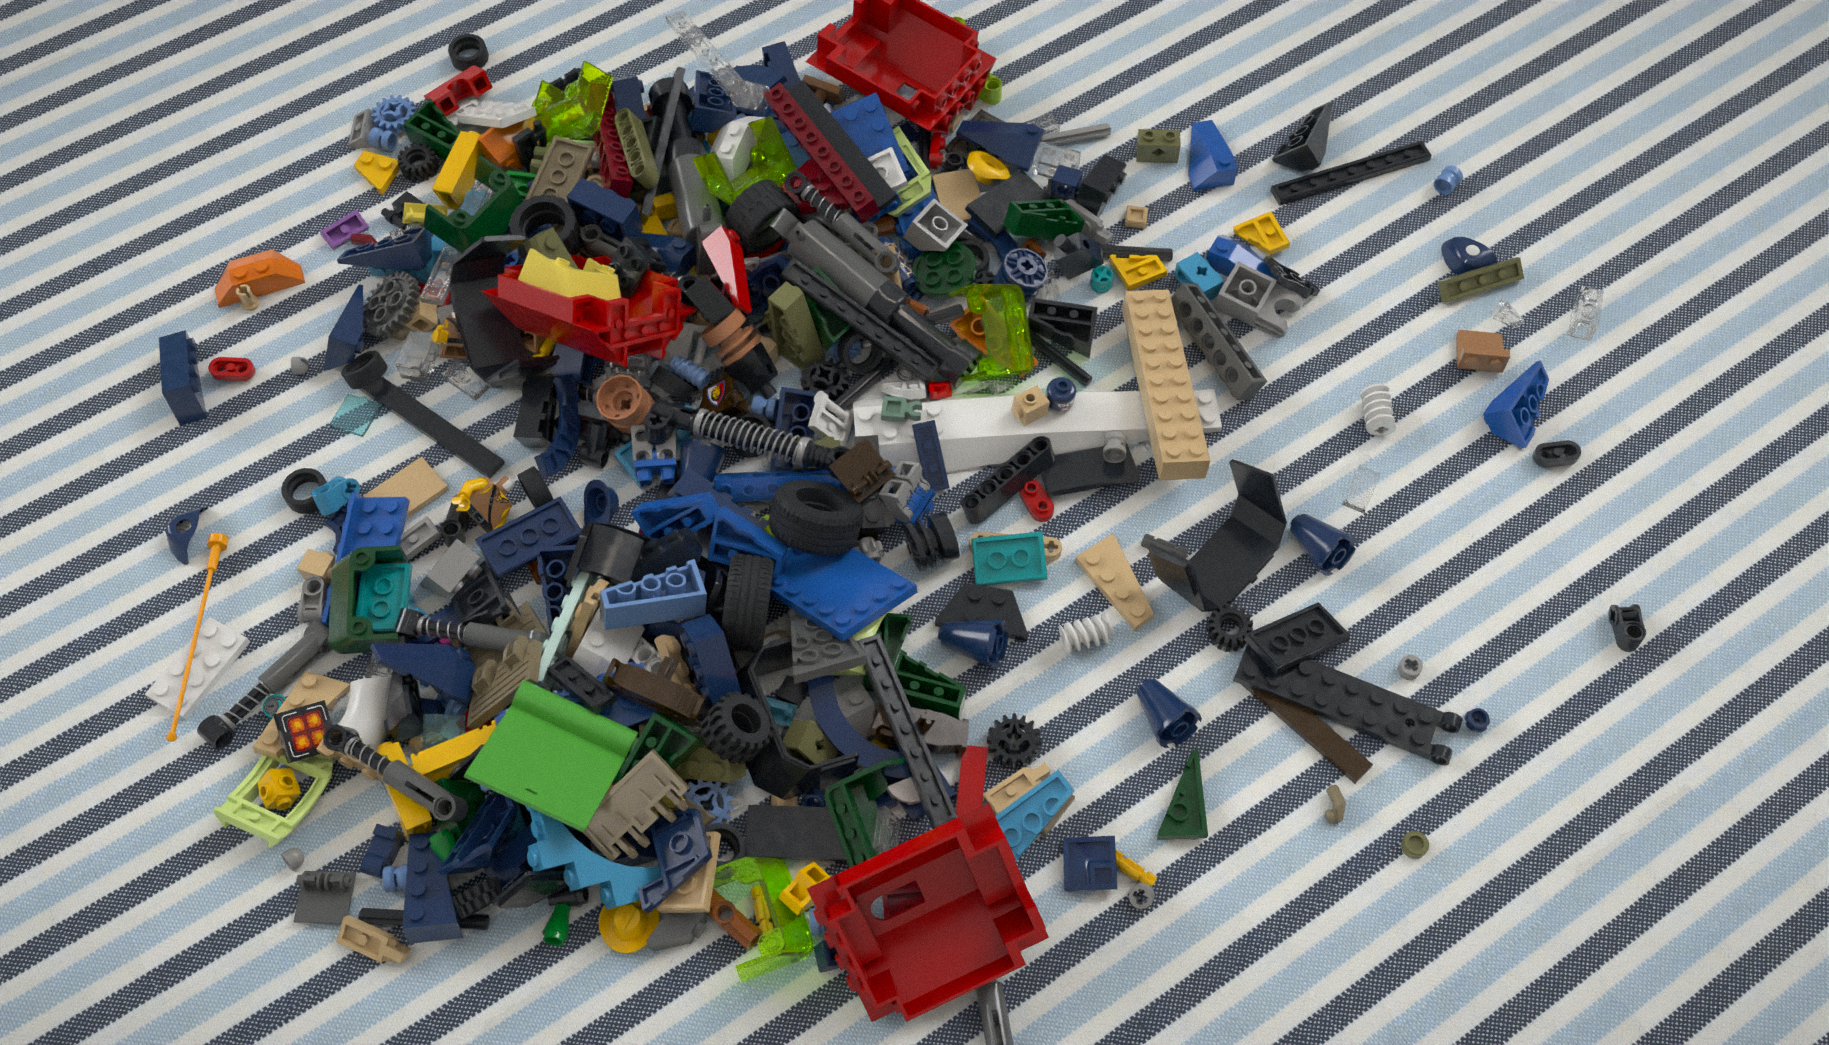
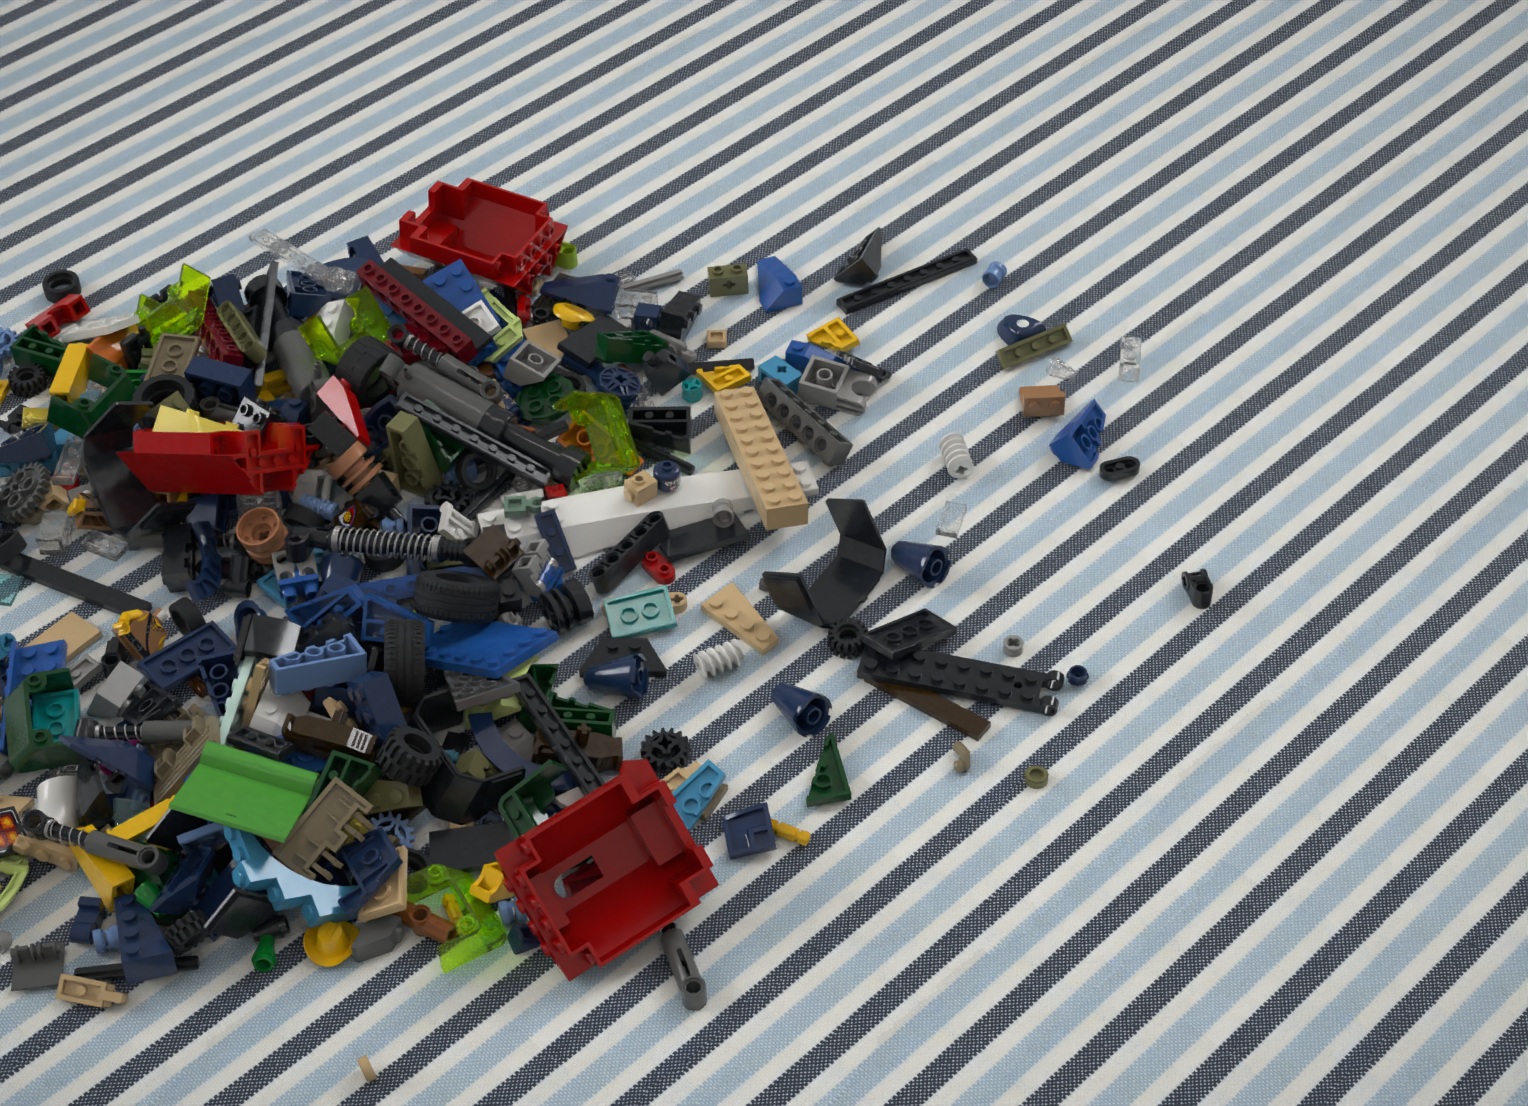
camera: 10 degrees left, 15 degrees down
(1149, 892) = (793, 854): light grey bush -> none

